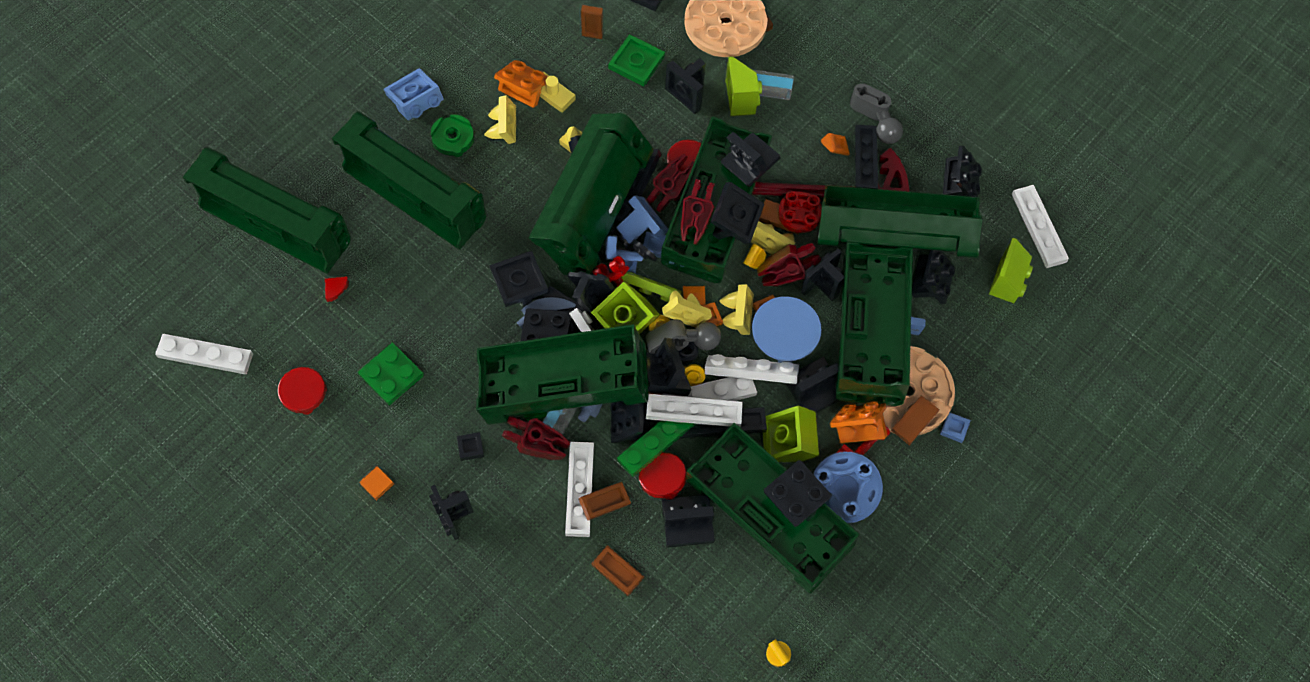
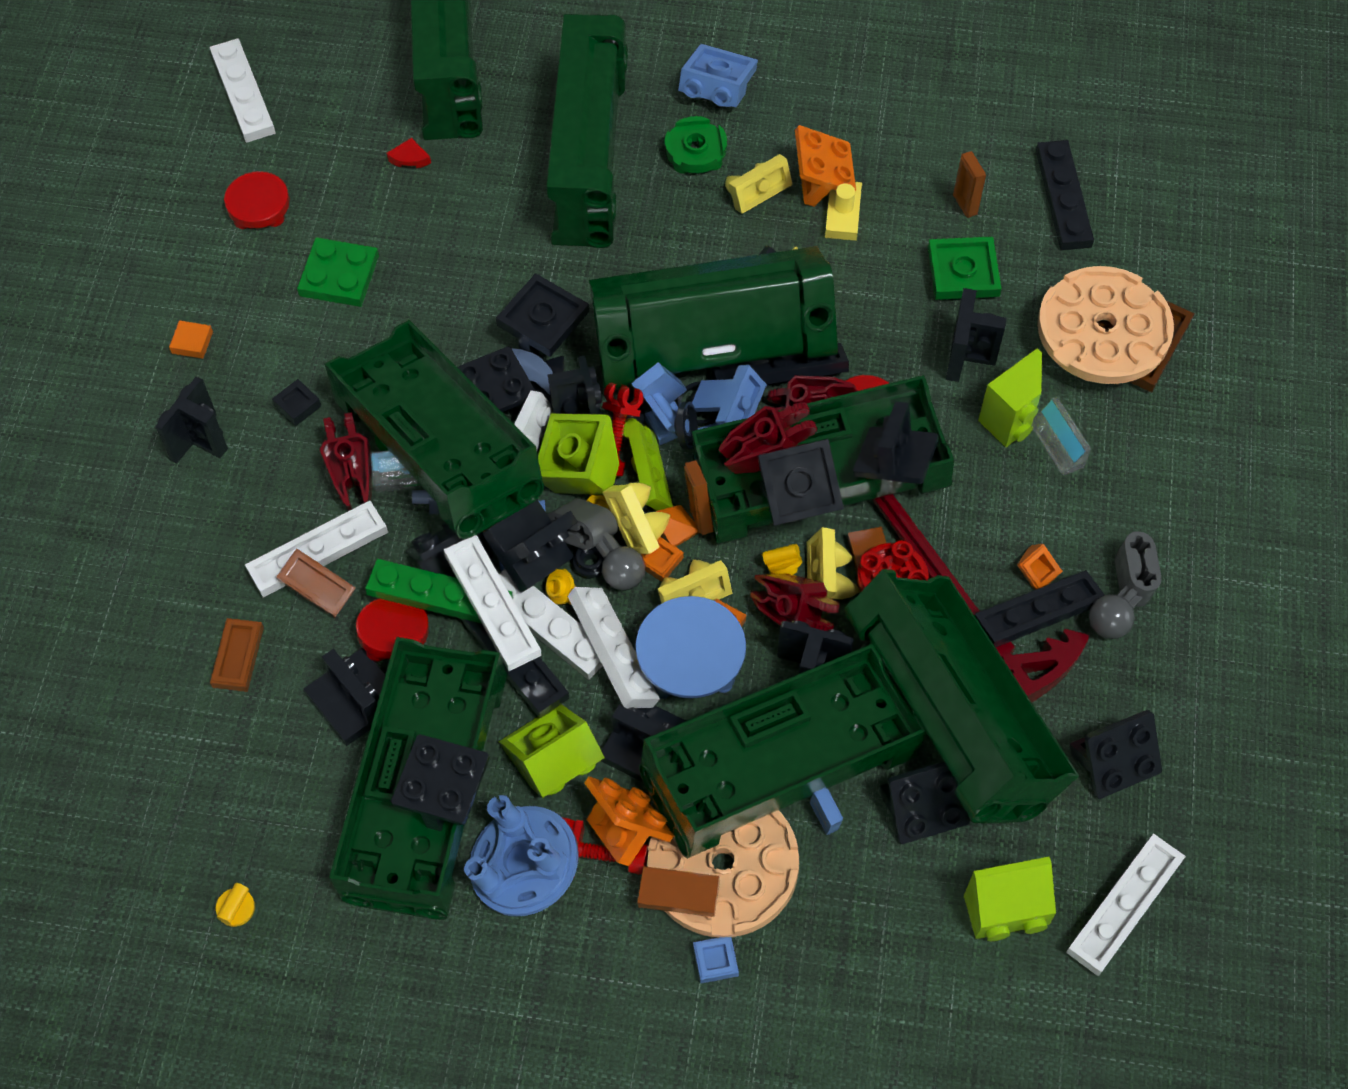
camera: 60 degrees right, 5 degrees down
(694, 271) = (698, 497): none -> dark orange tile

